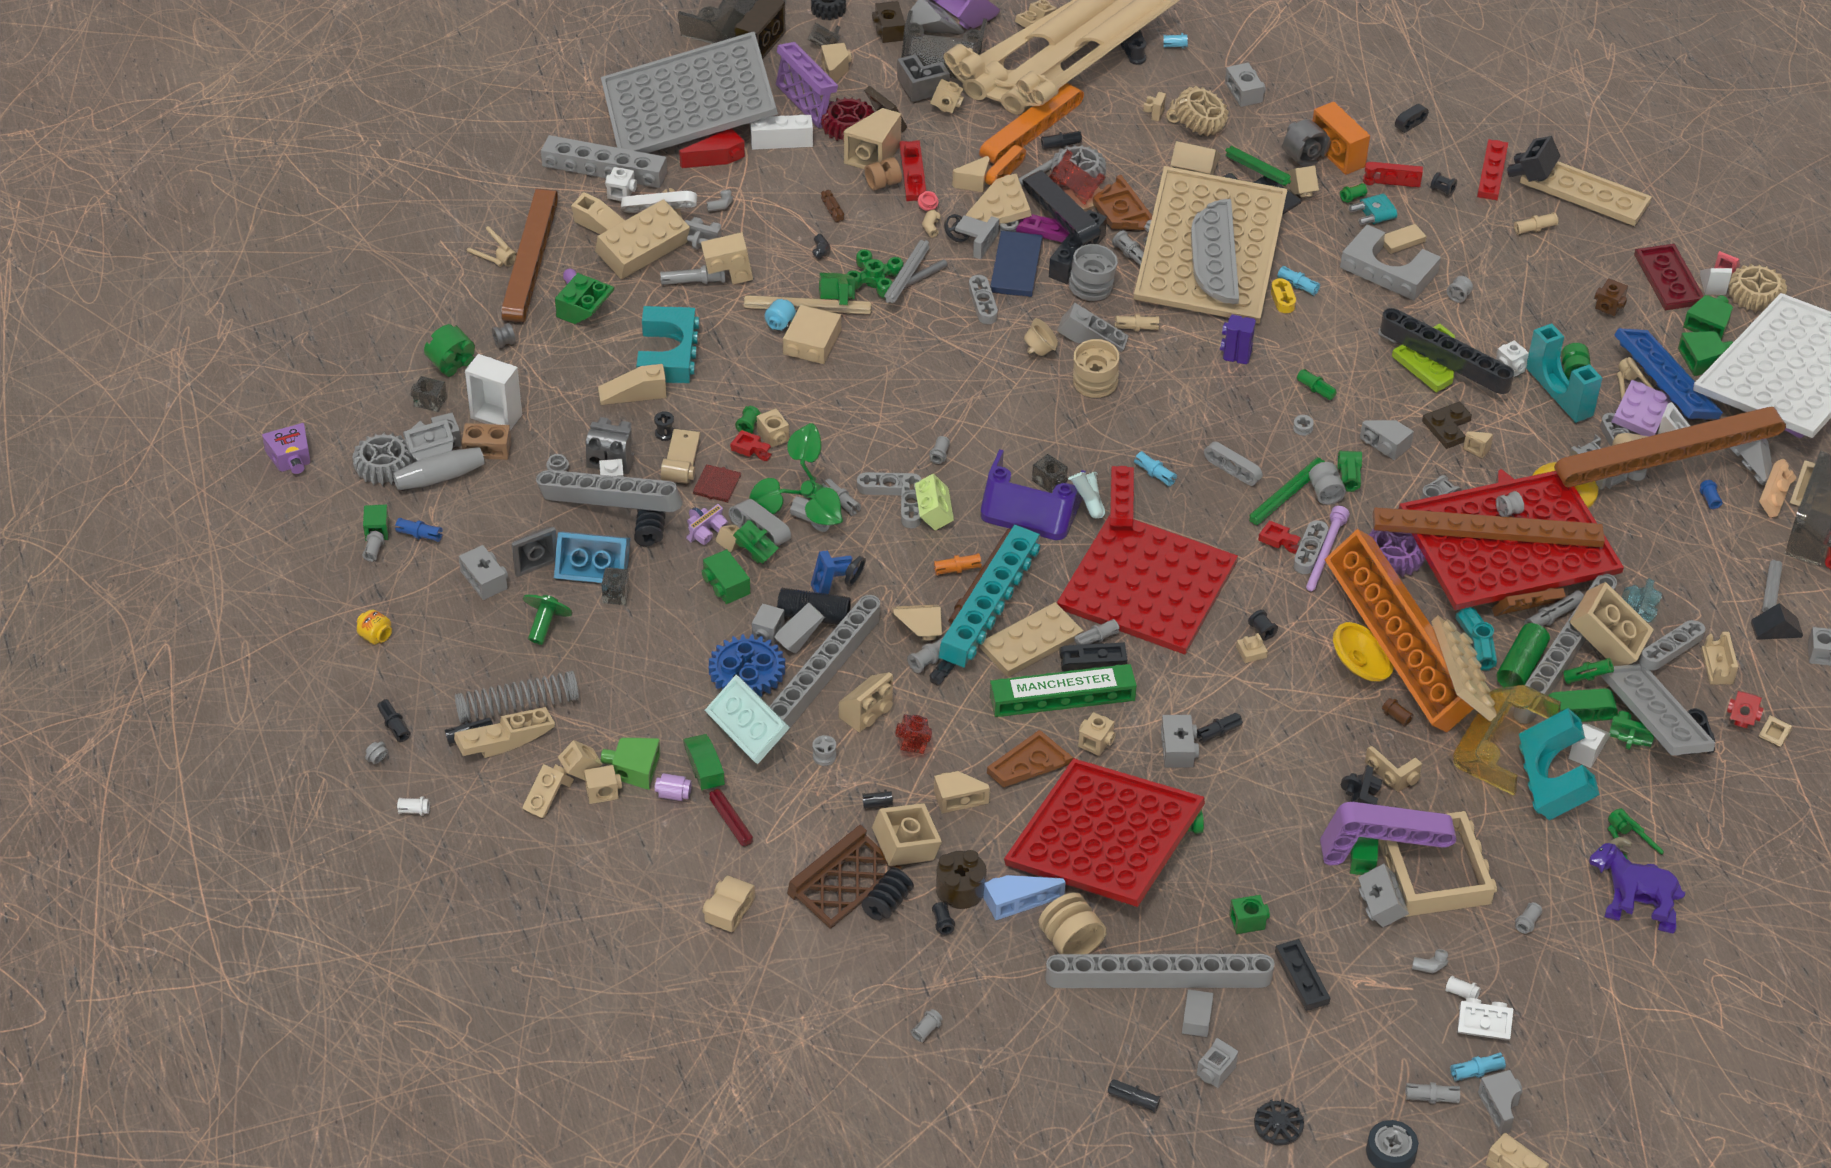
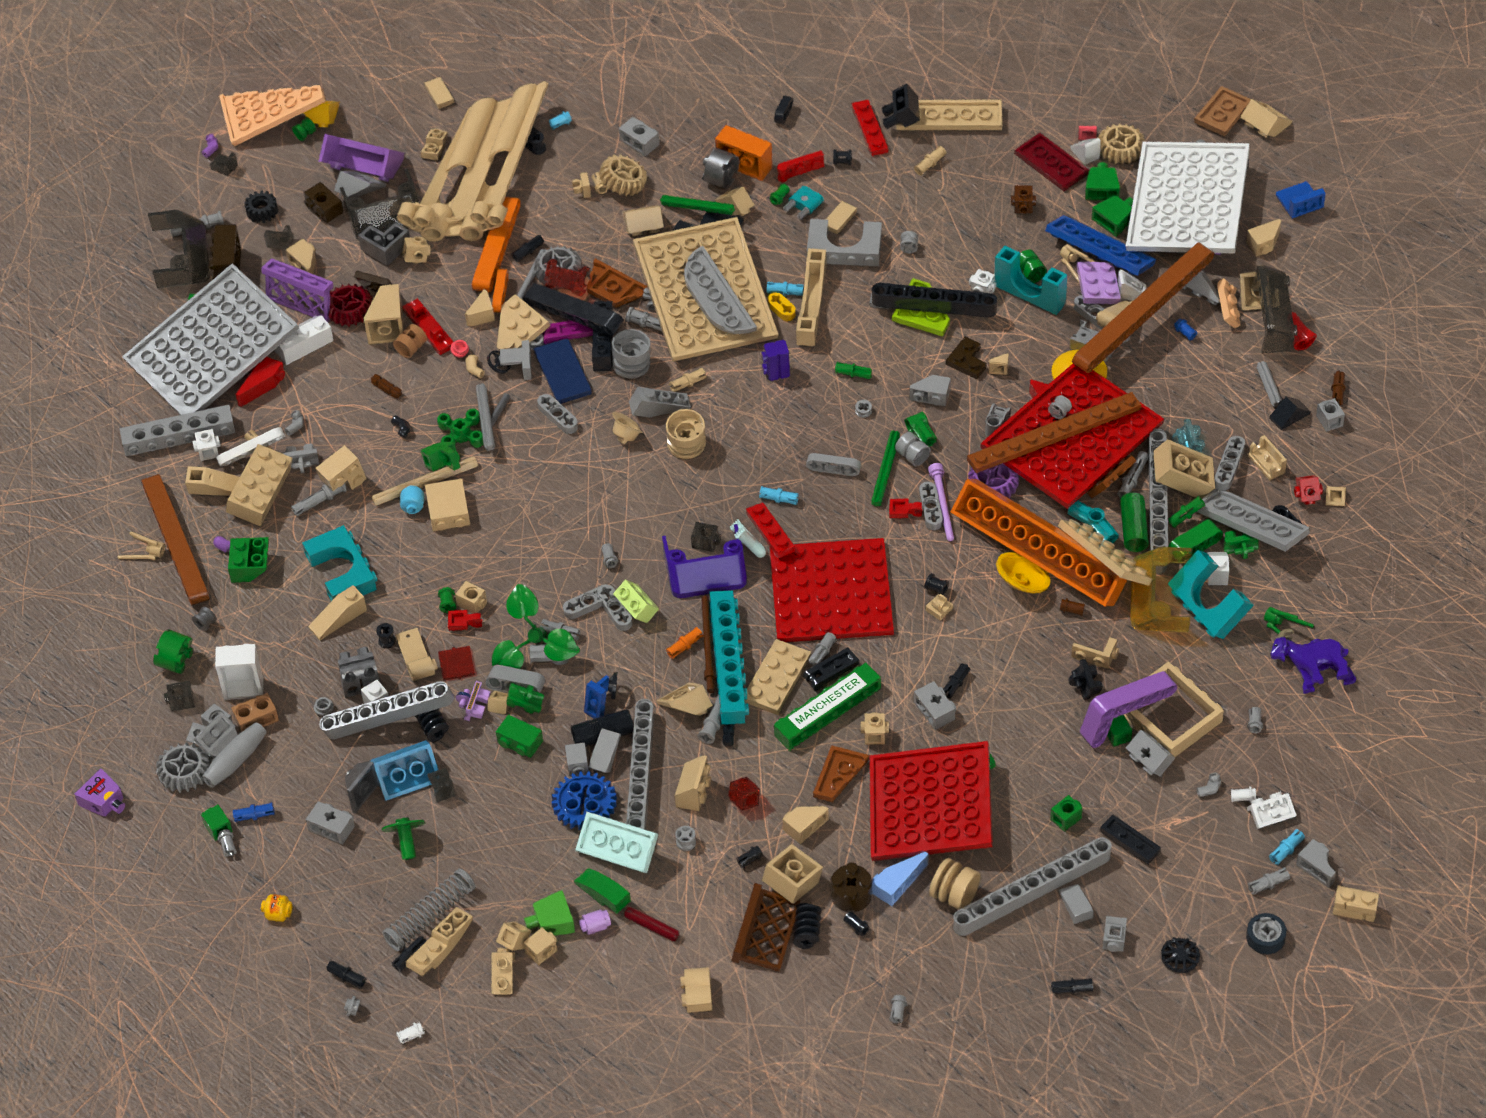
camera: 25 degrees left, 5 degrees up
(1299, 319) = (812, 296): none -> tan arch

